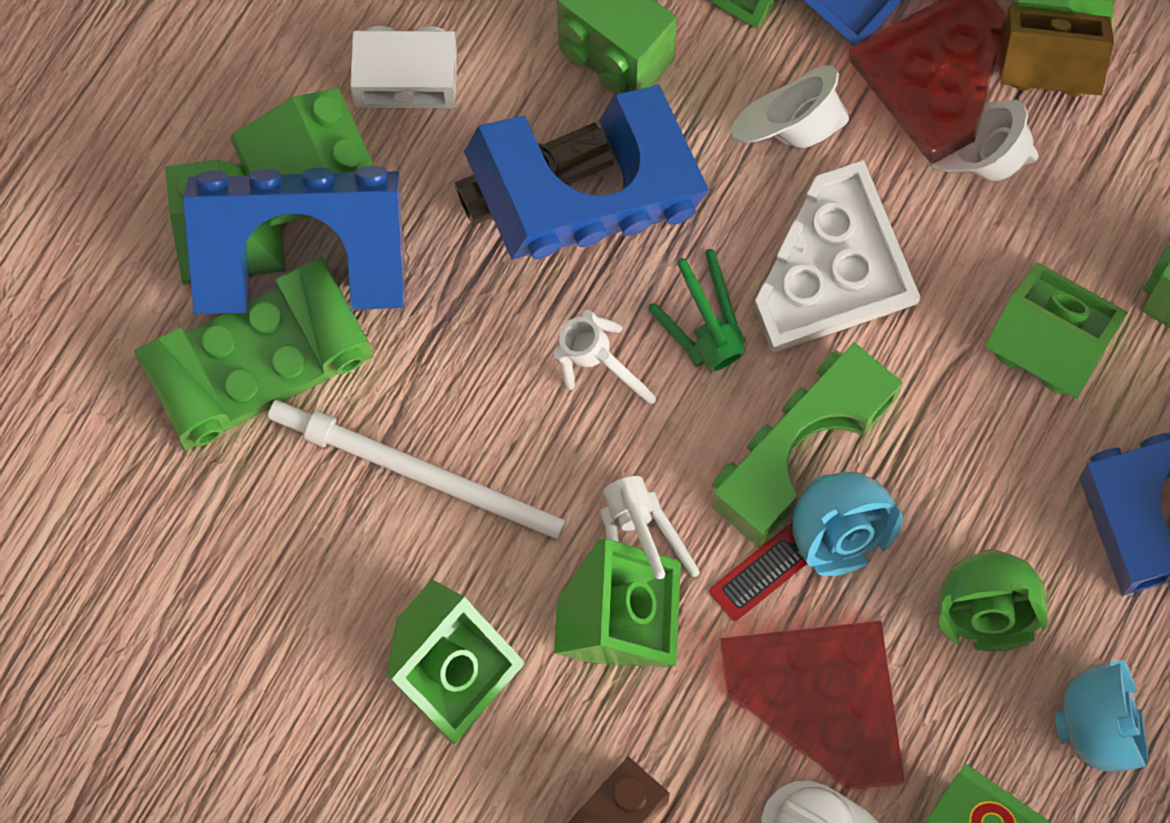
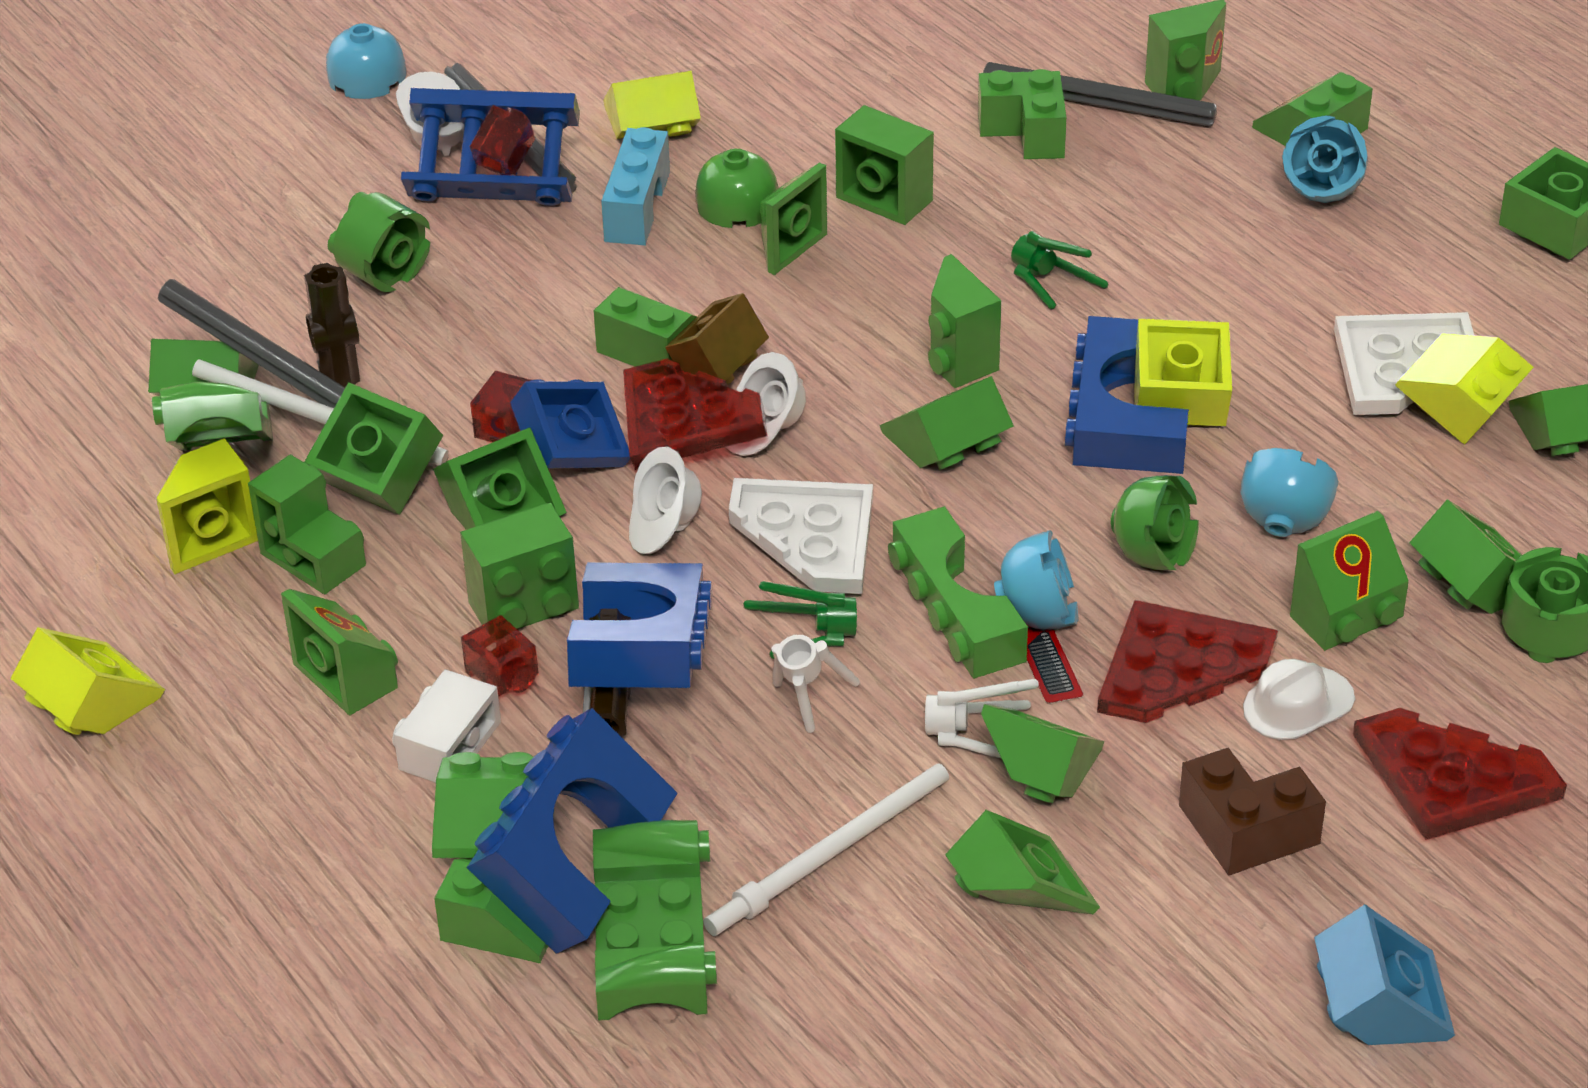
camera: 65 degrees left, 30 degrees down
(512, 55) = (508, 665): none -> clear red brick

